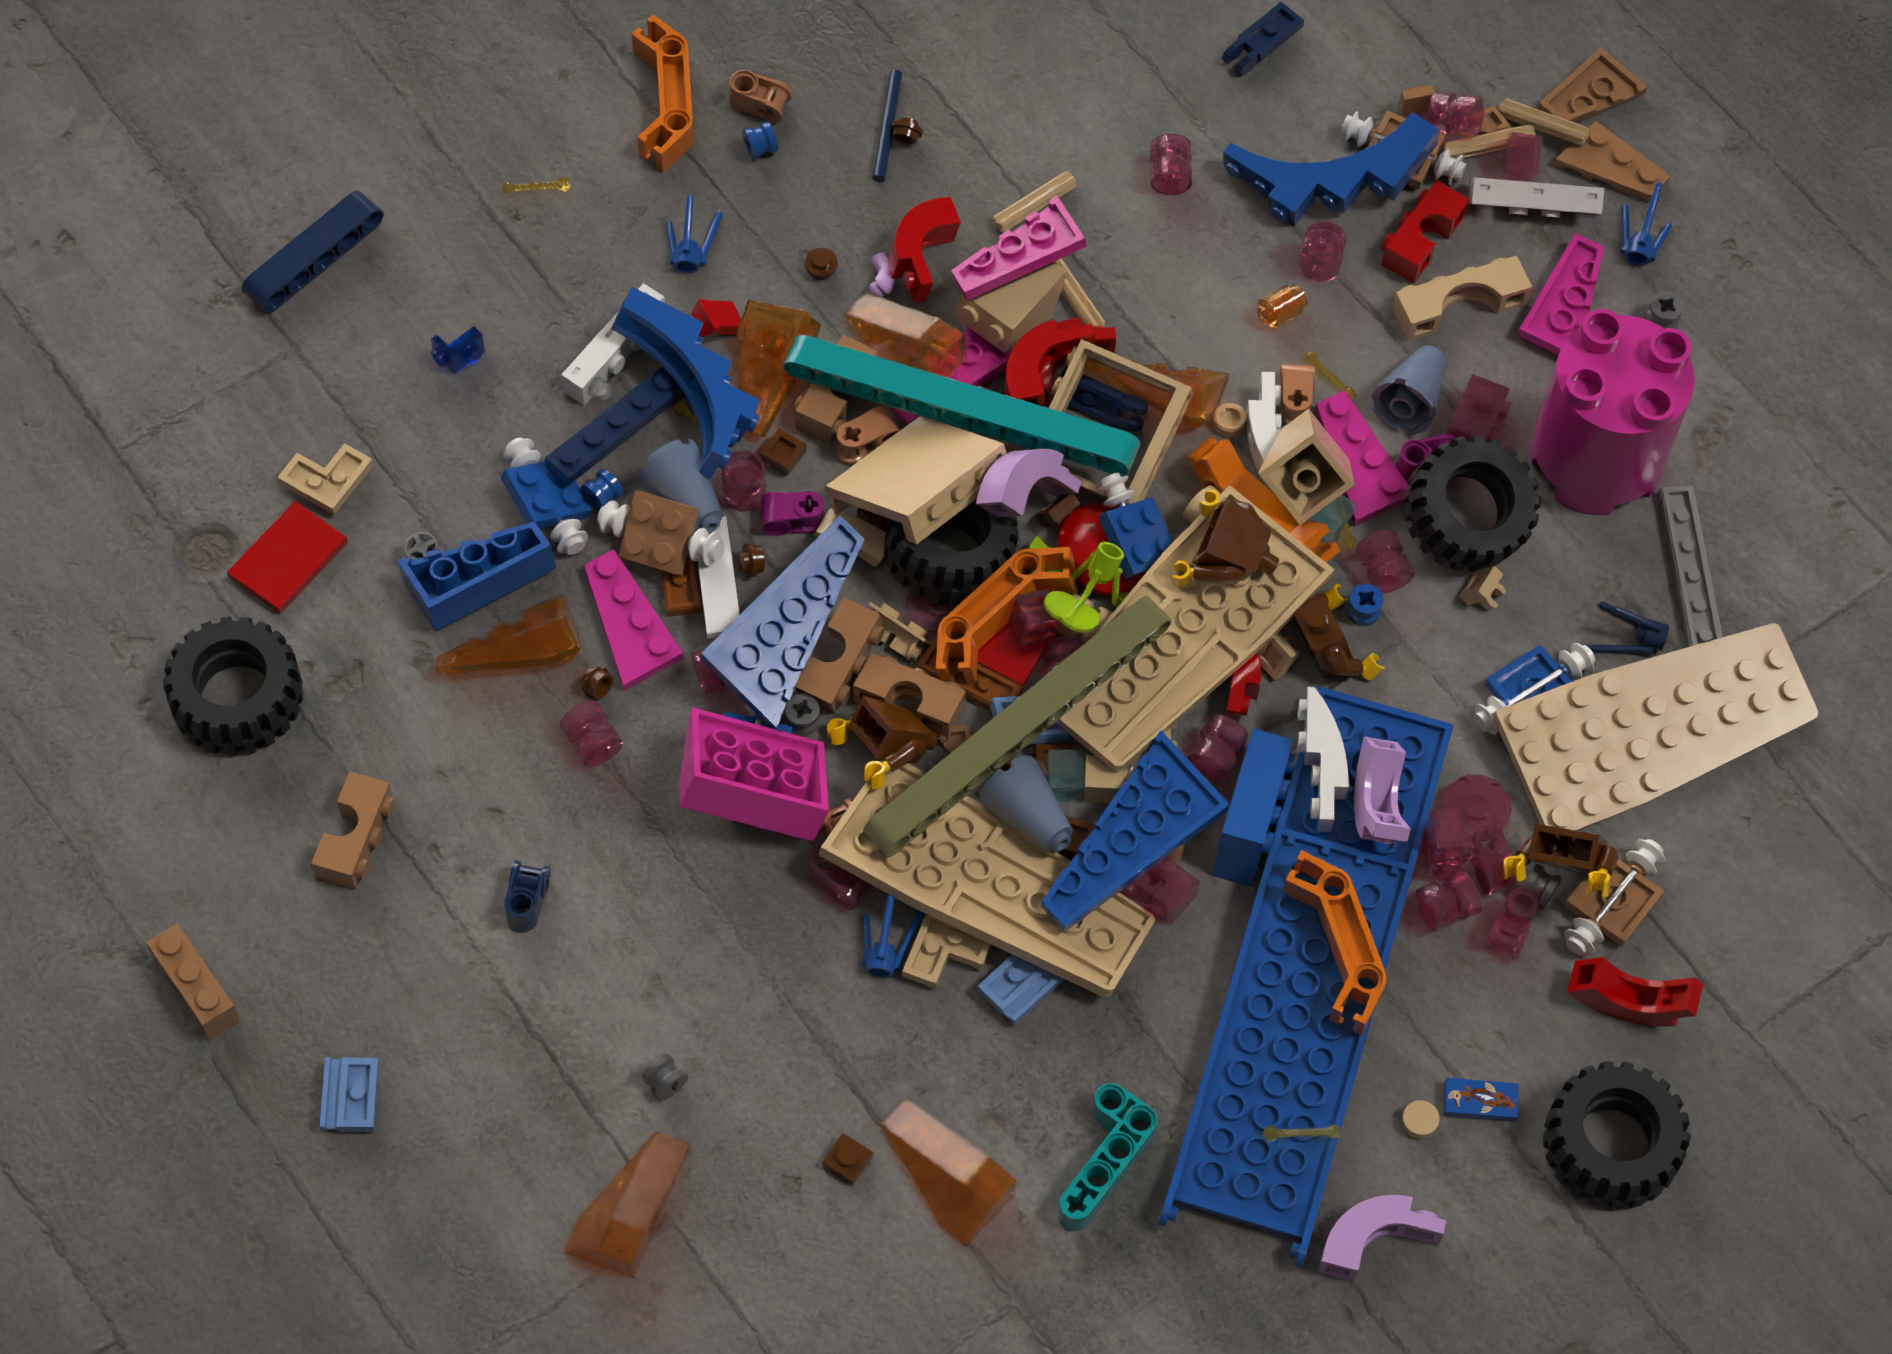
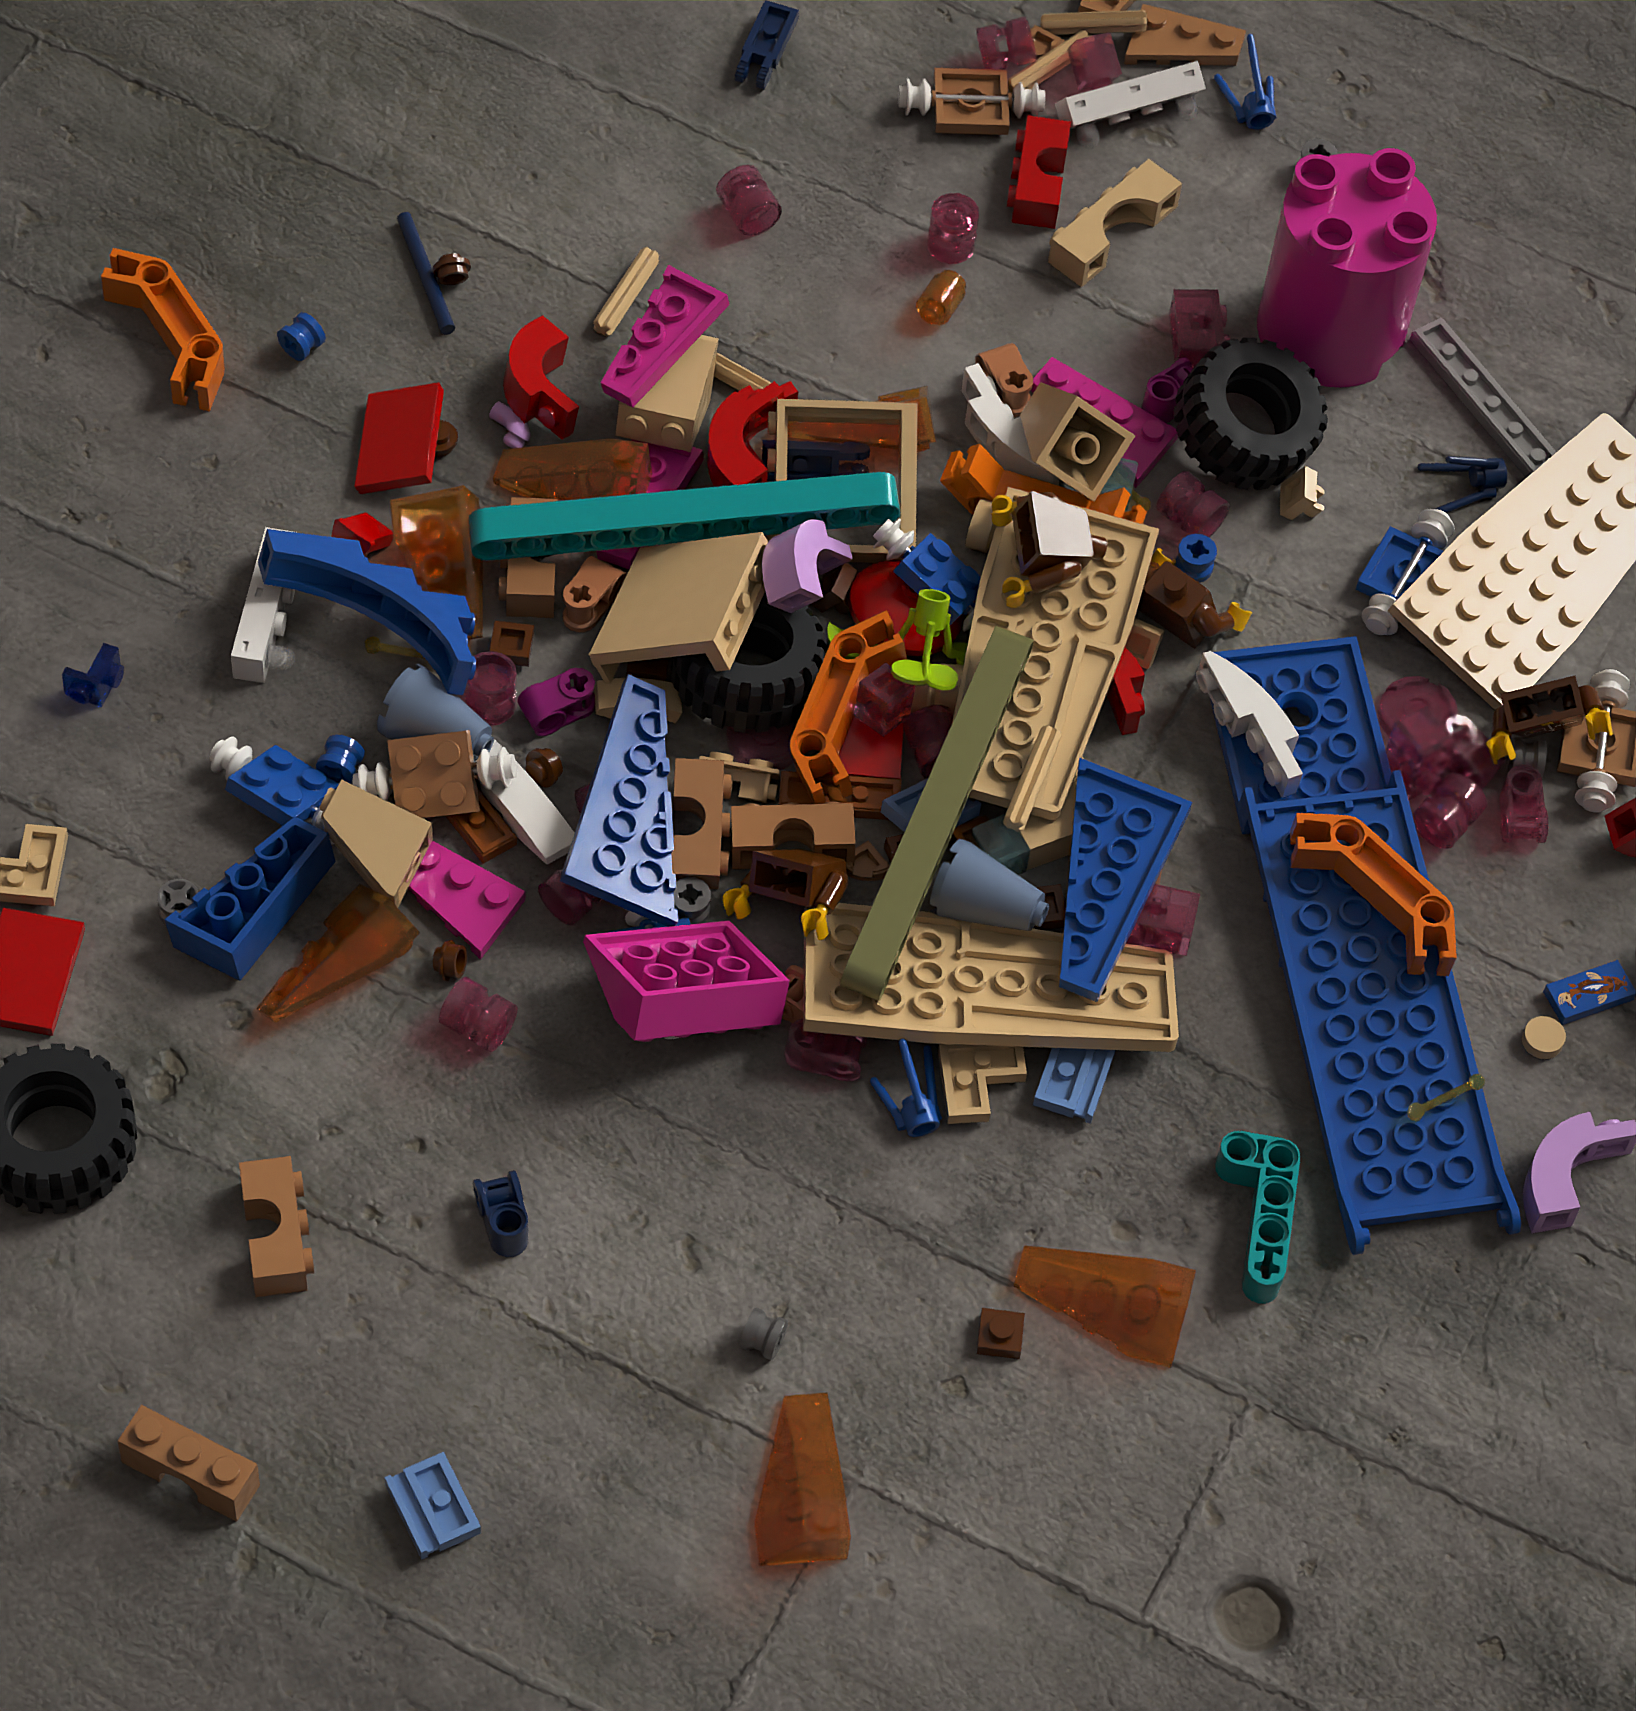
camera: 30 degrees left, 5 degrees down
(563, 184) = (107, 463): clear yellow hinge -> none
(579, 568) = (376, 838): none -> tan slope
(614, 426) = (318, 685): dark blue plate -> none
(687, 255) = (290, 483): blue plant -> none
(759, 95) = (269, 292): nougat piece -> none
(788, 252) = (399, 438): none -> red tile
(1110, 731) = (1032, 778): none -> tan axle
(1220, 743) = (1137, 751): clear pink wheel -> none
(1229, 420) = (953, 432): tan tile -> none
(1254, 807) = (1218, 819): blue wedge -> none
(1311, 358) = (997, 339): clear yellow hinge -> none
(1336, 182) = (927, 155): blue arch -> none
(1377, 792) = (1326, 731): lavender arch -> none
(1411, 391) = (1123, 332): sand blue cone -> none
(1415, 100) = (957, 48): medium nougat tile -> none
(1565, 296) = (1216, 188): dark pink wing -> none

